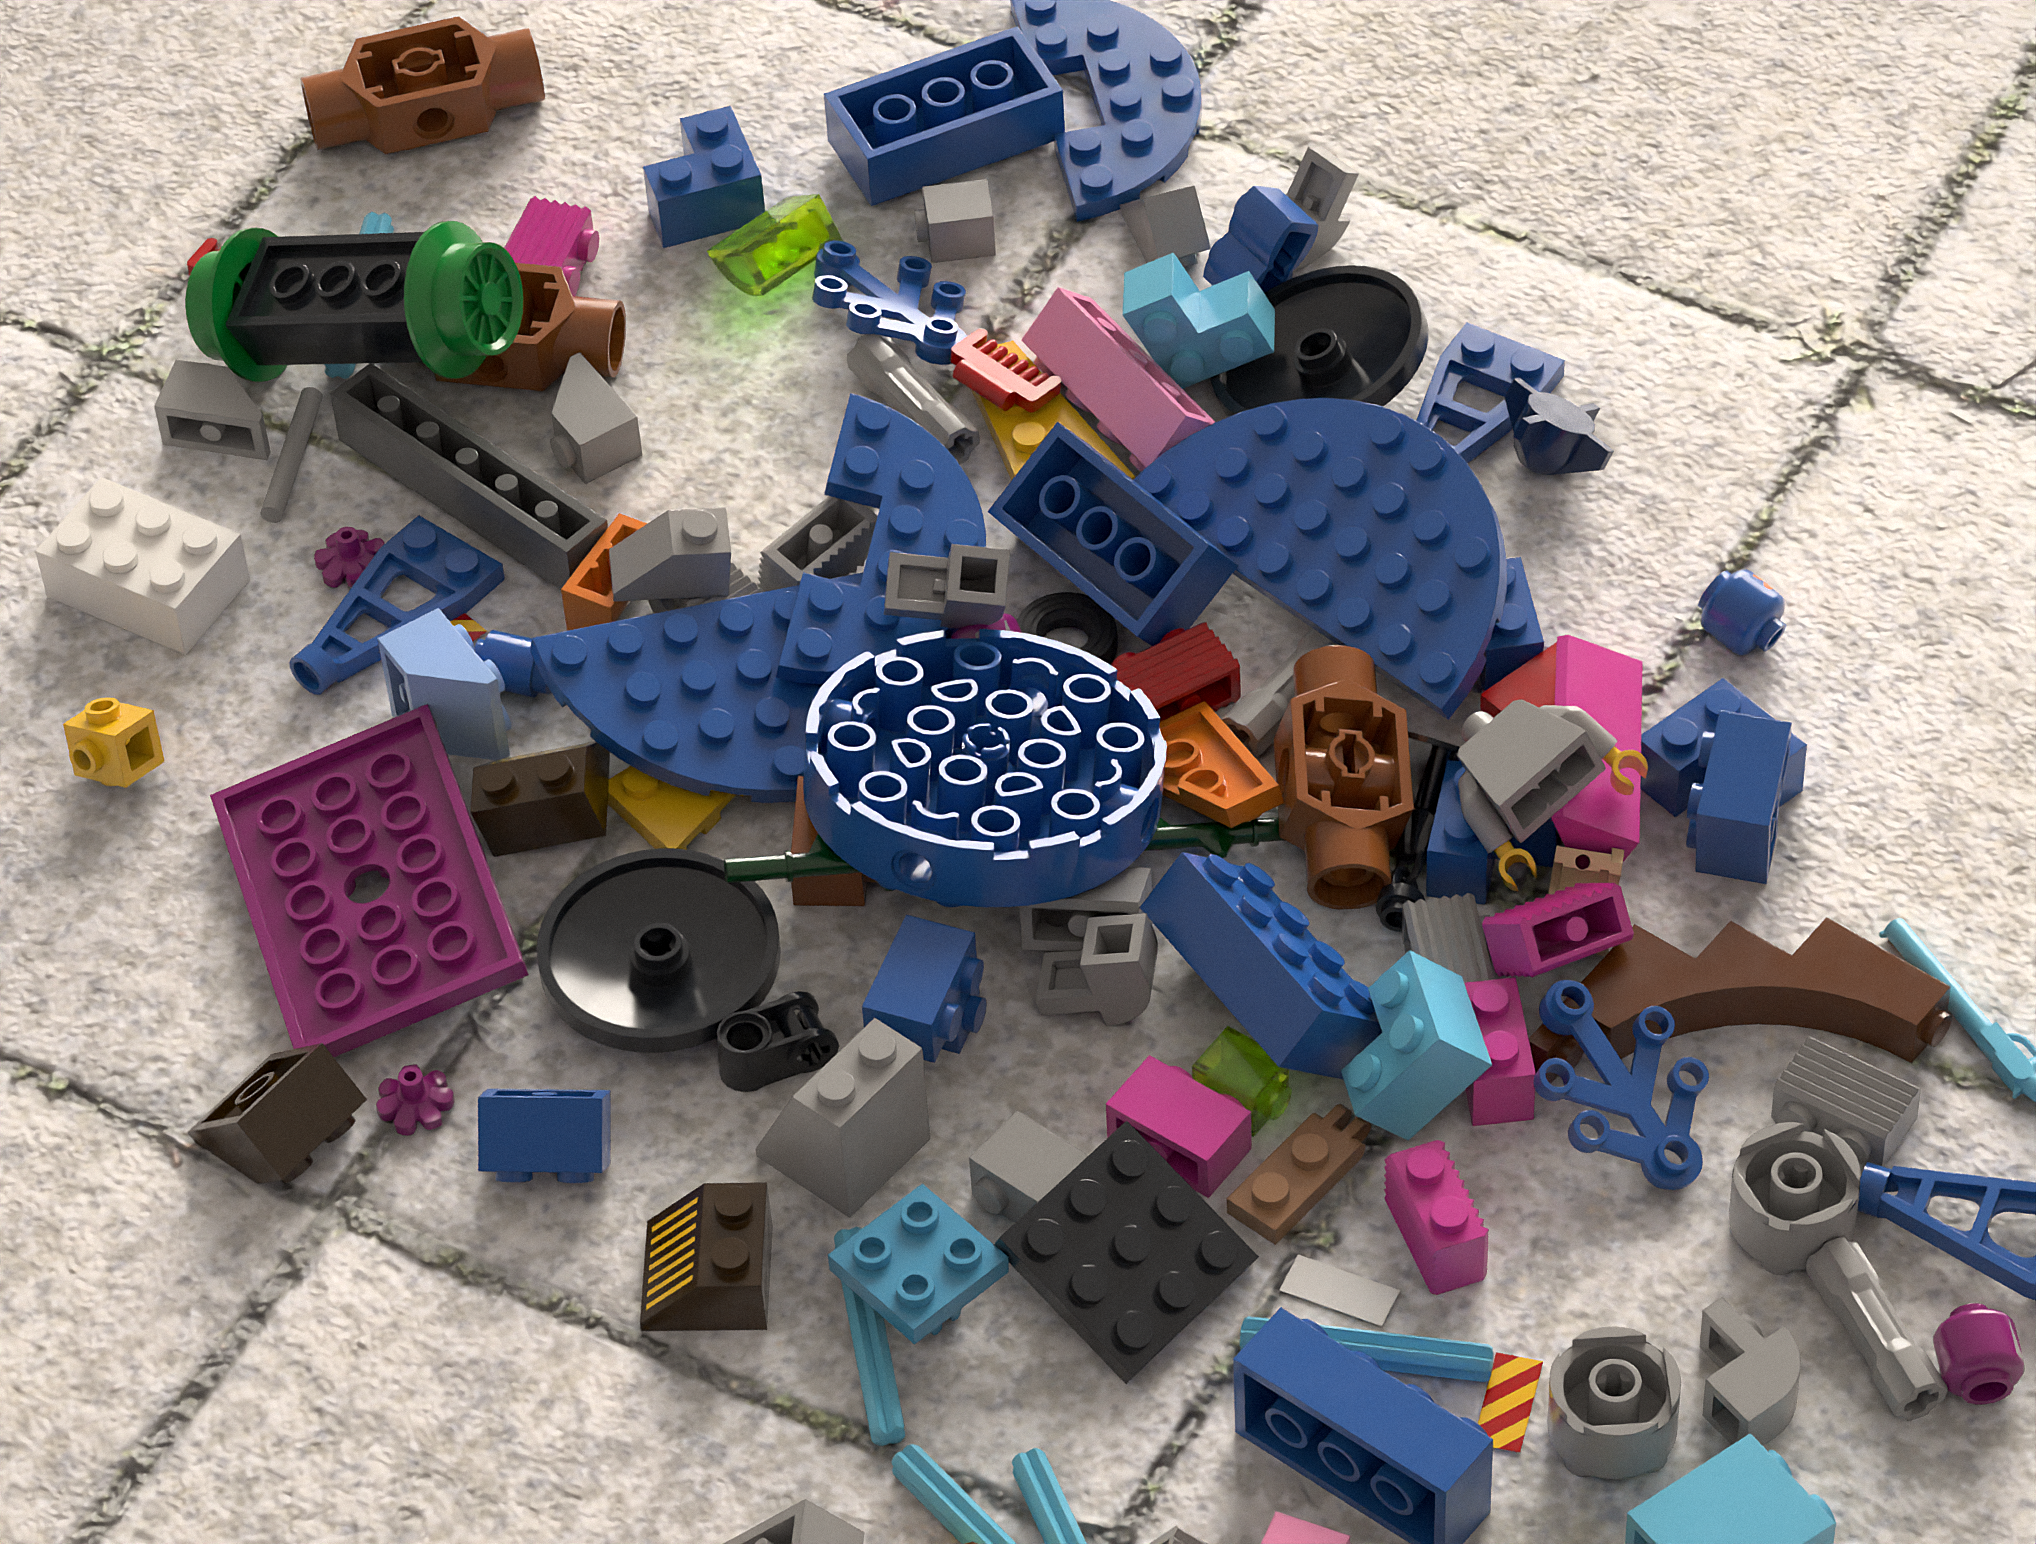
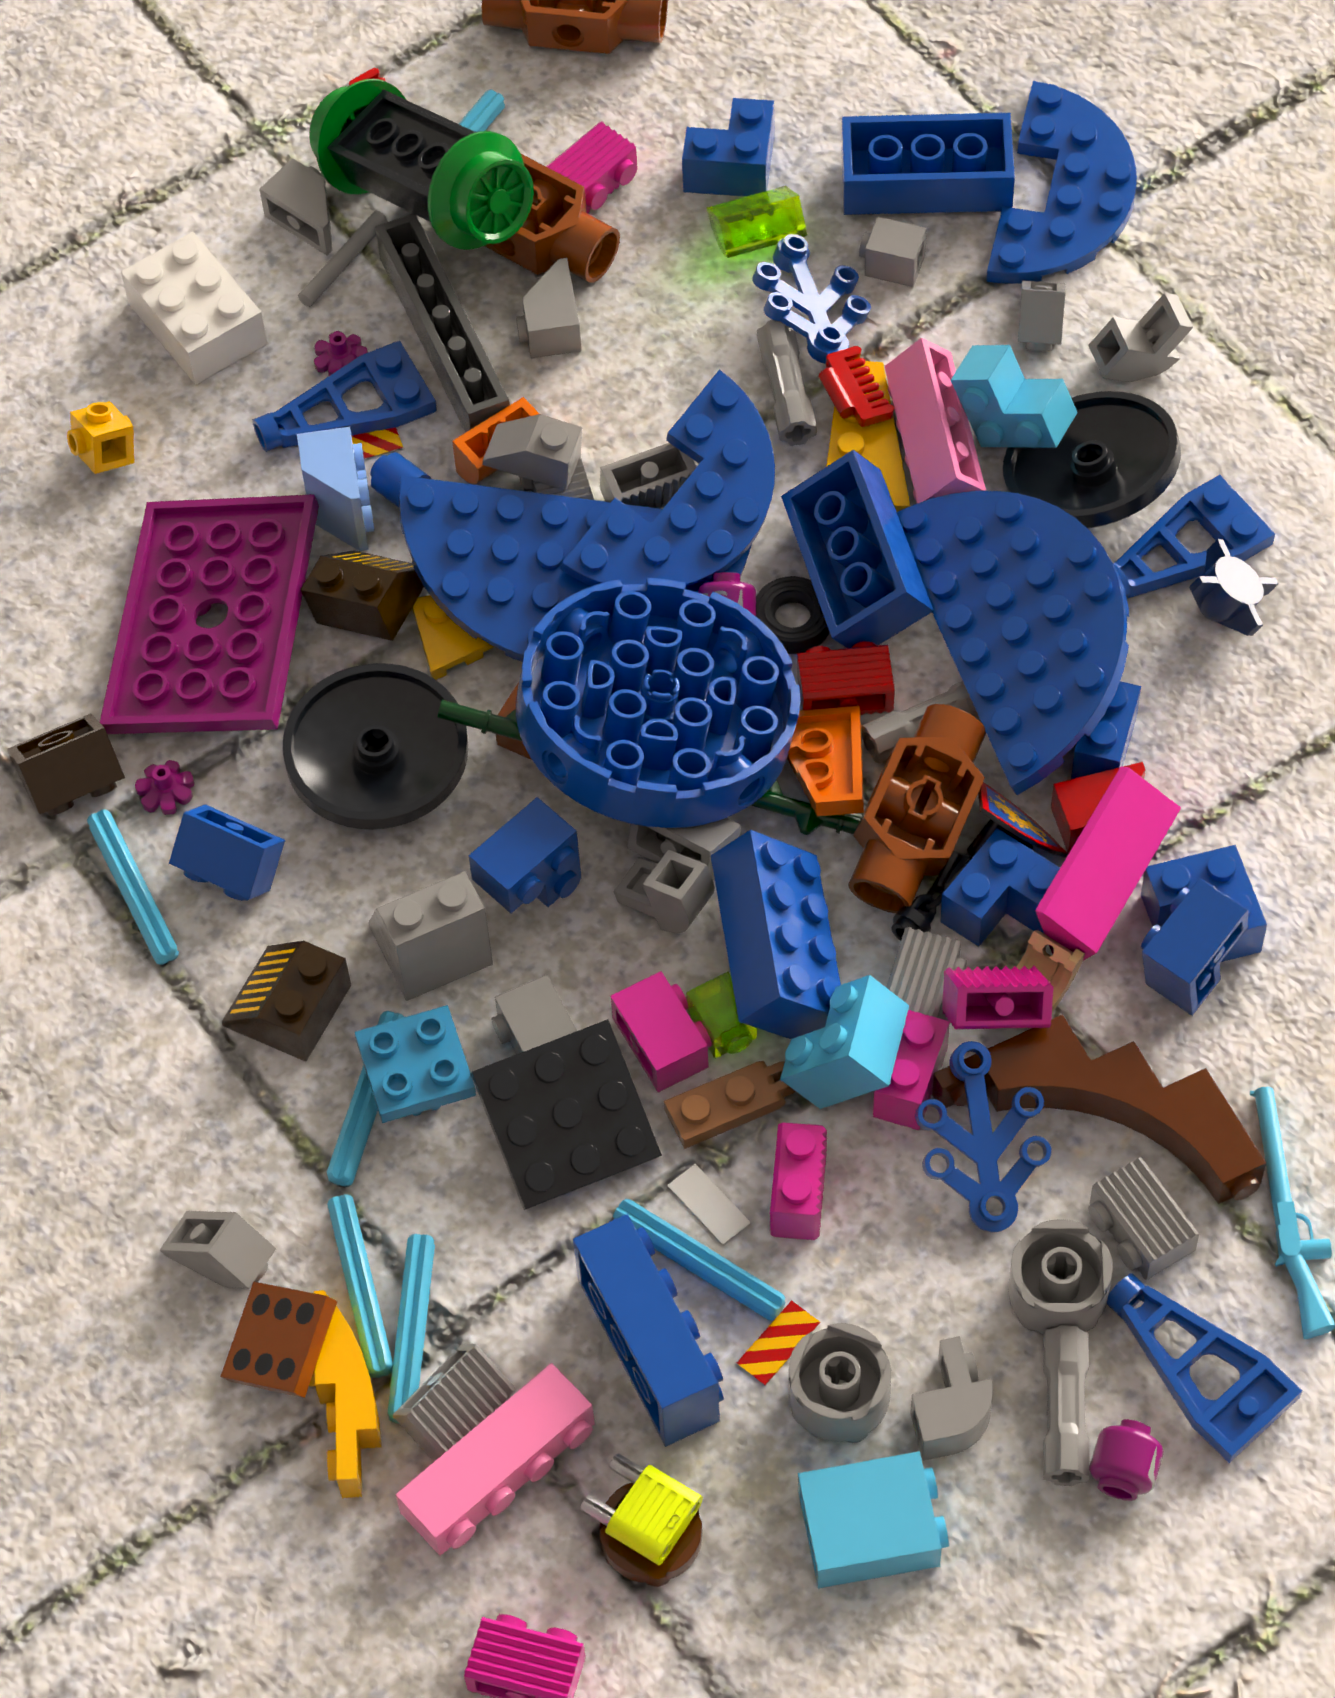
camera: 25 degrees right, 10 degrees up
(441, 1220) = (133, 887): none -> medium azure axle
(772, 1042) = (422, 847): black piece -> none
(955, 589) = (703, 549): light grey brick -> none
(1263, 237) = (1095, 356): blue brick -> none
(1528, 768) = (1036, 865): light grey torso -> none
(1742, 612) = (1290, 792): blue head -> none

